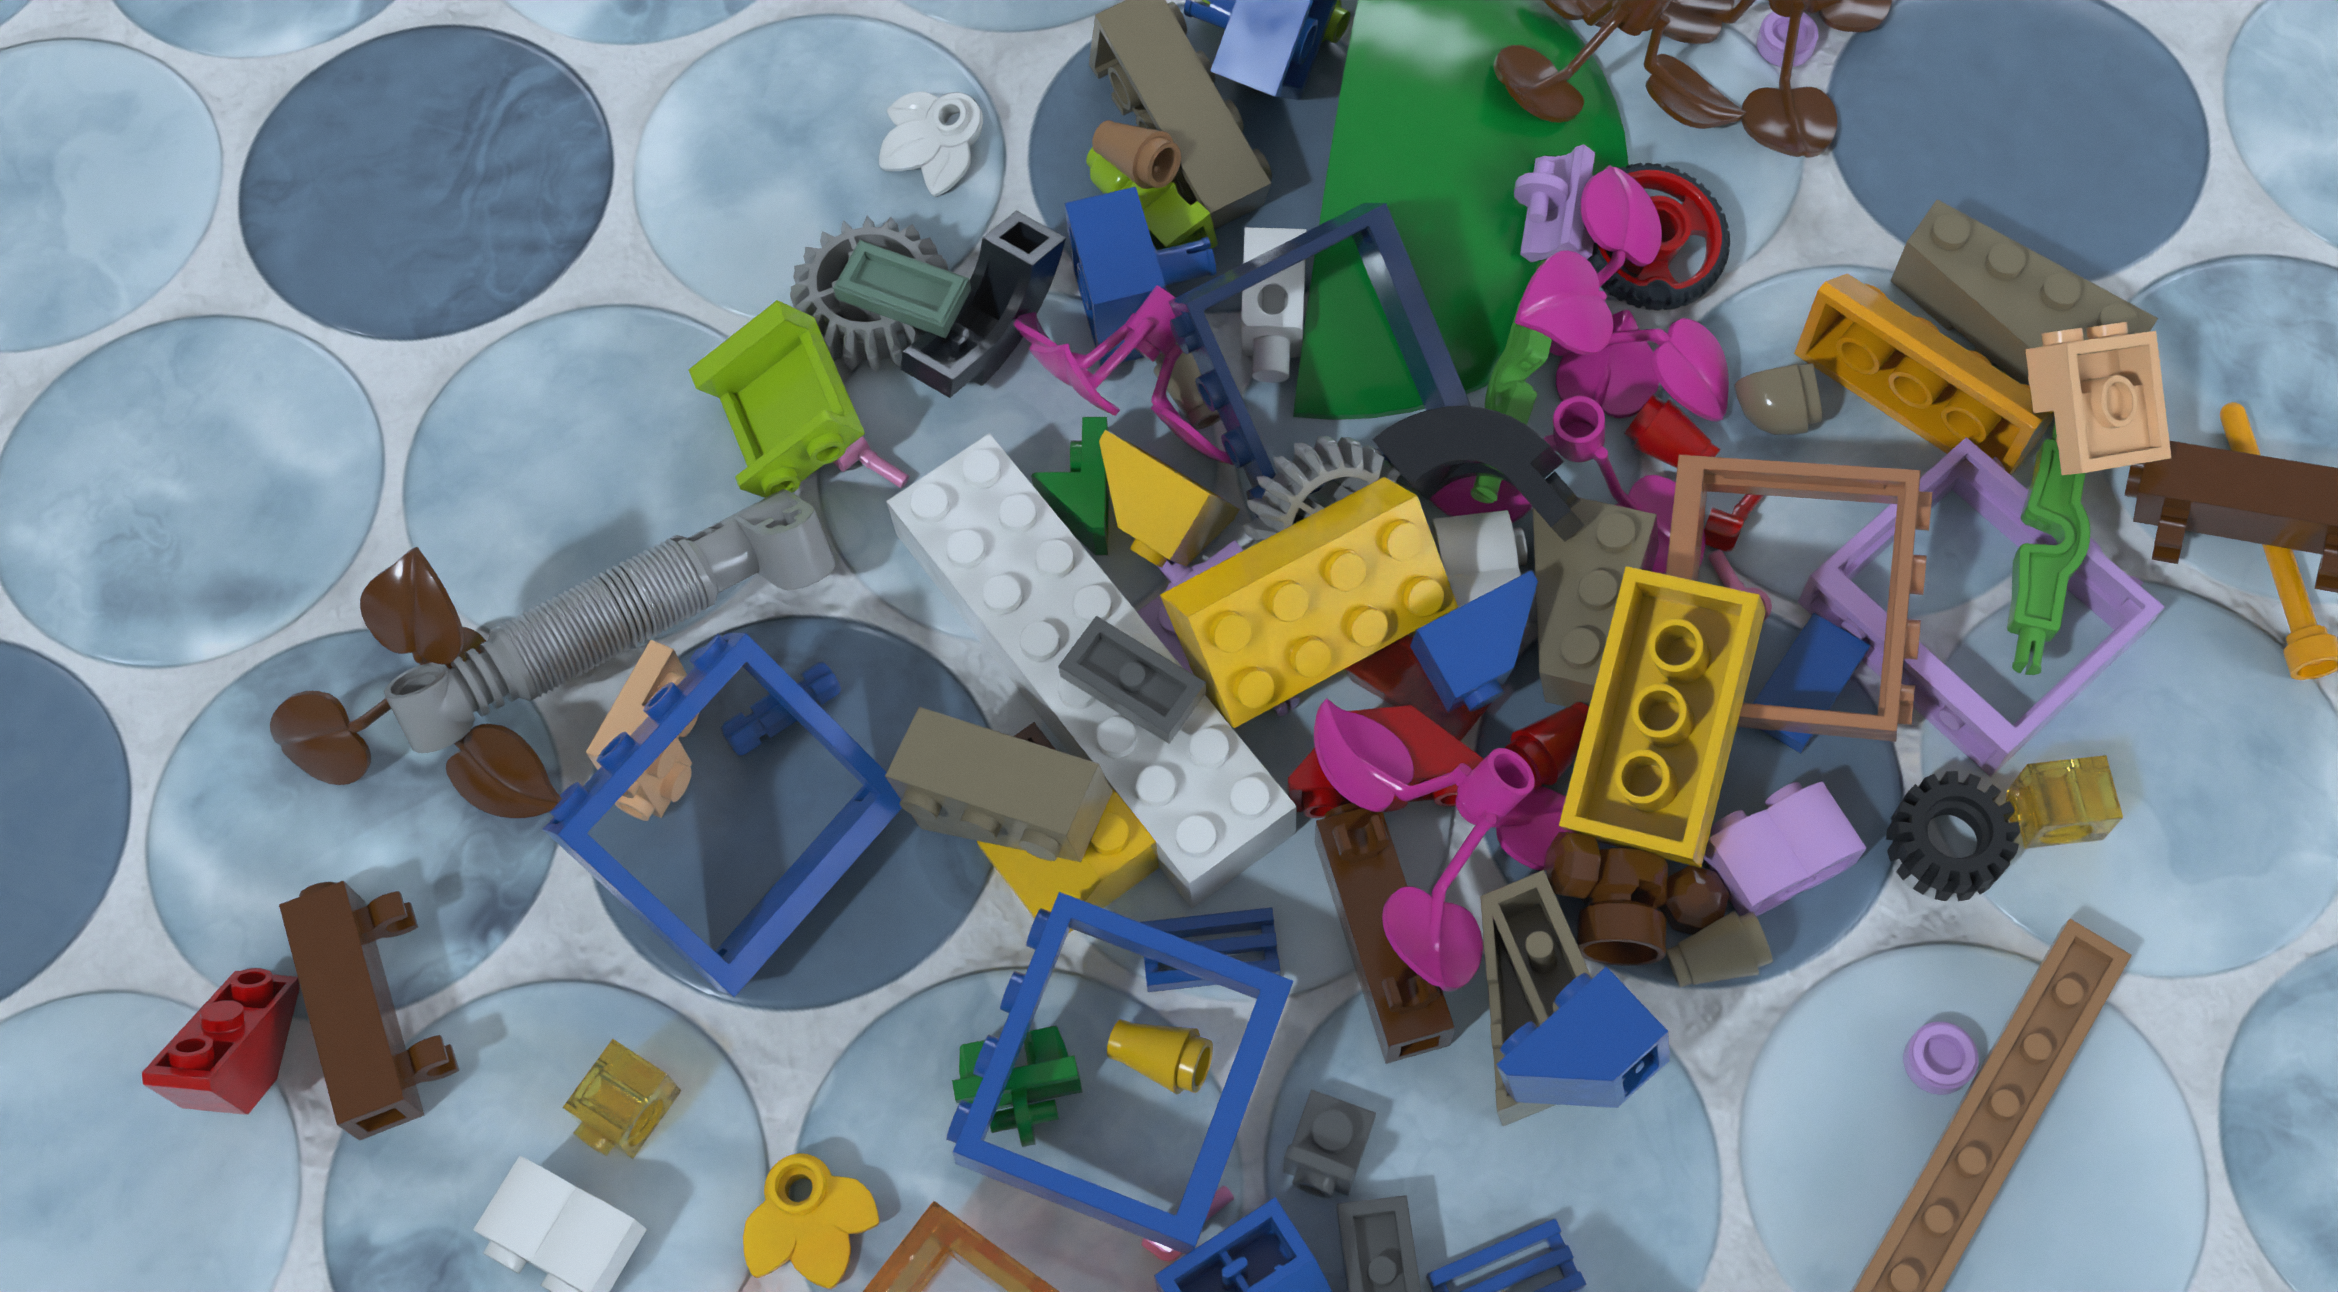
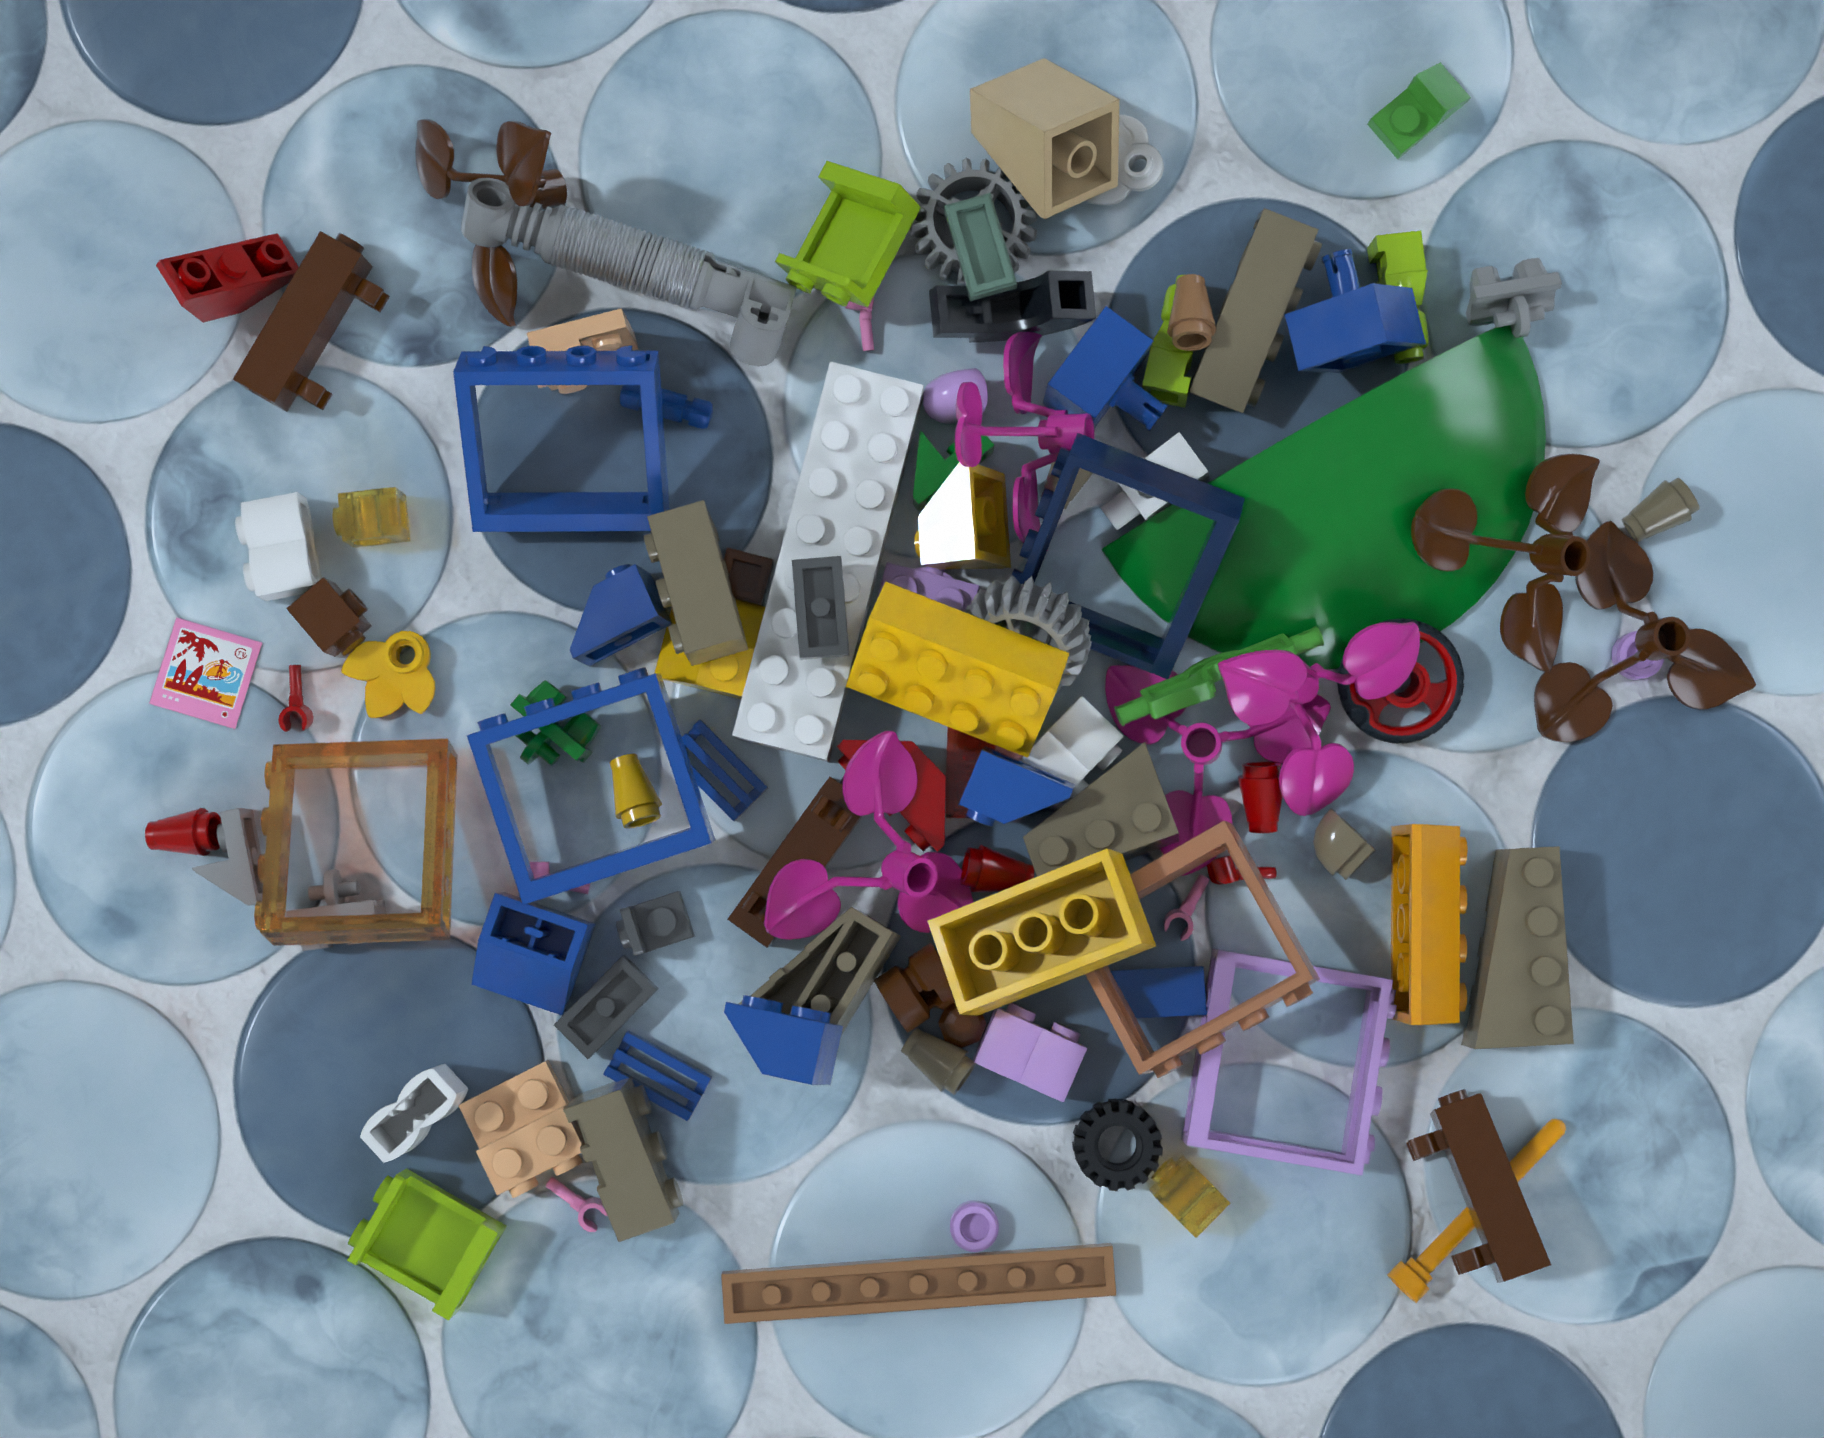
camera: 50 degrees right, 20 degrees up
(686, 1235) = (331, 617): none -> reddish brown brick
(853, 156) = (1049, 134): none -> tan slope
(958, 914) = (618, 614): none -> blue slope
(1028, 421) = (941, 394): none -> lavender piece
(1477, 441) = (1141, 706): black arch -> none
(1555, 205) = (1360, 607): lavender hips -> none
(1572, 864) = (913, 944): reddish brown tile -> none
(2043, 570) = (1377, 1068): bright green piece -> none
(2102, 396) = (1468, 1050): light nougat plate -> none

